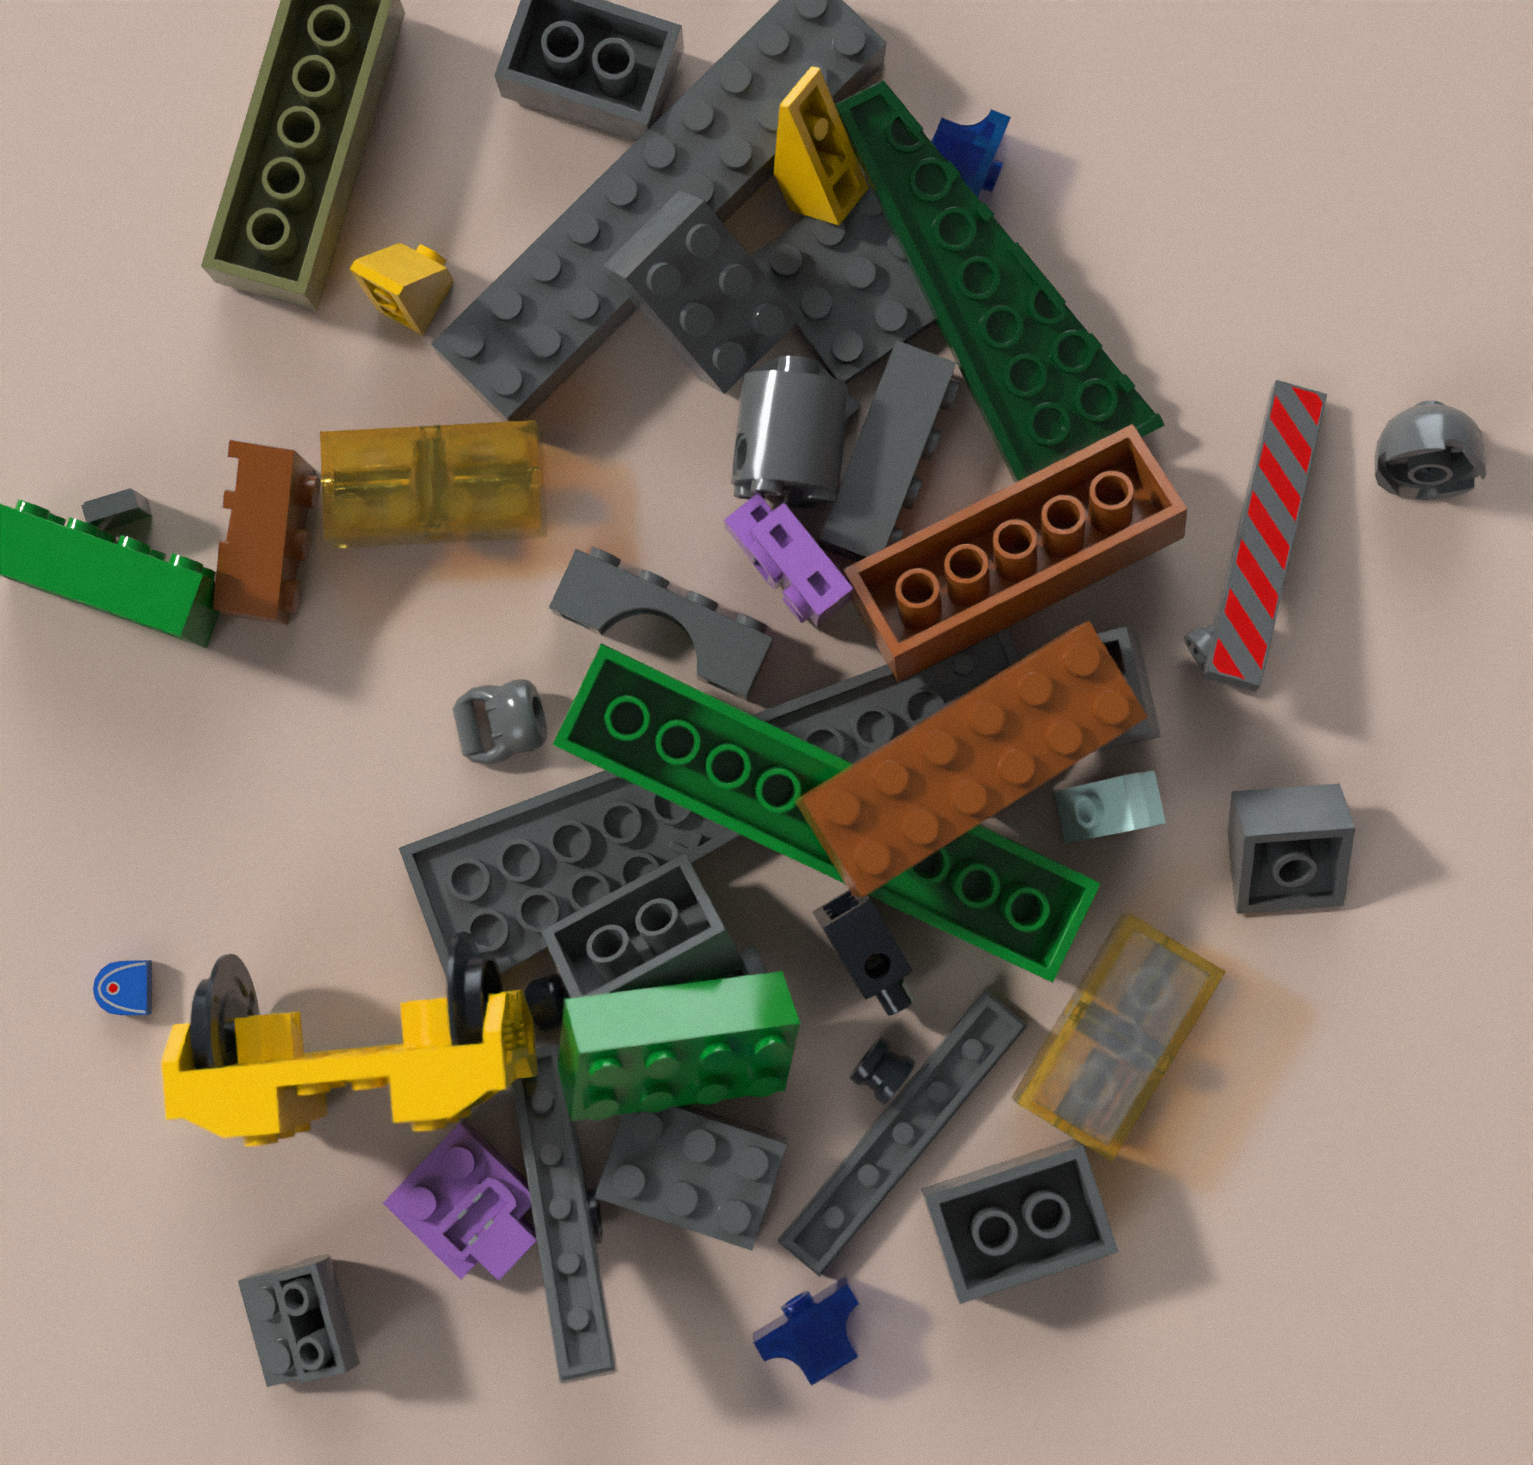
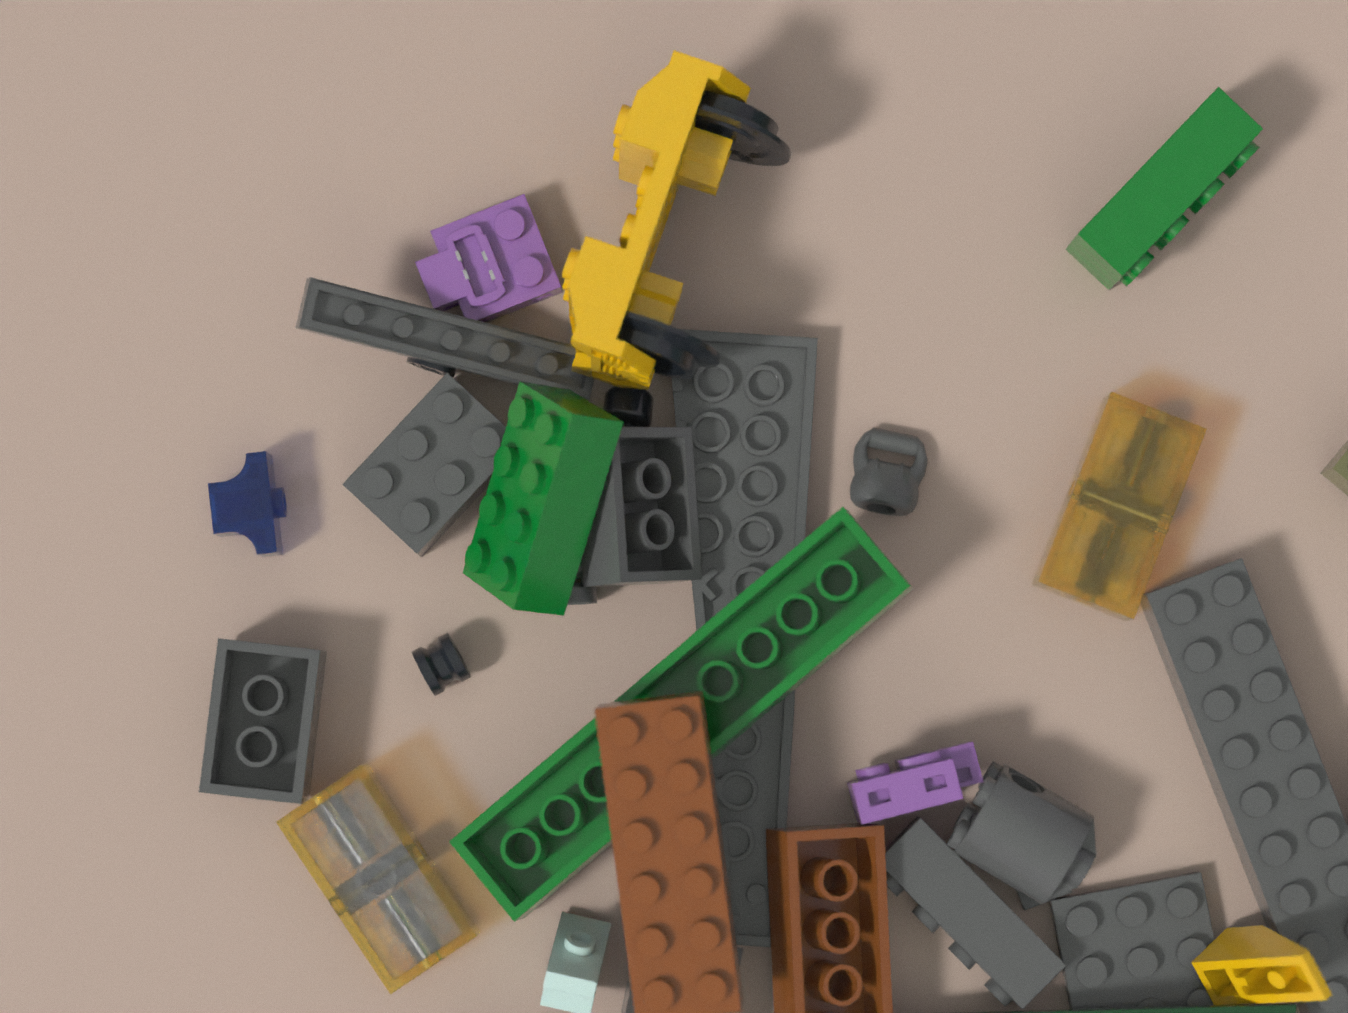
camera: 115 degrees right, 0 degrees up
(116, 509) = (1219, 225): dark grey tile -> none
(125, 987) = (803, 56): blue tile -> none
(265, 533) = (1139, 343): dark orange wedge -> none
(299, 1322) = (457, 81): dark grey brick -> none
(405, 283) = (1306, 561): yellow slope -> none
(601, 594) = (957, 607): dark grey arch -> none
(701, 291) = (1182, 813): dark grey brick -> none
(856, 934) = (566, 693): black torso -> none
(902, 1133) = (381, 658): dark grey tile -> none

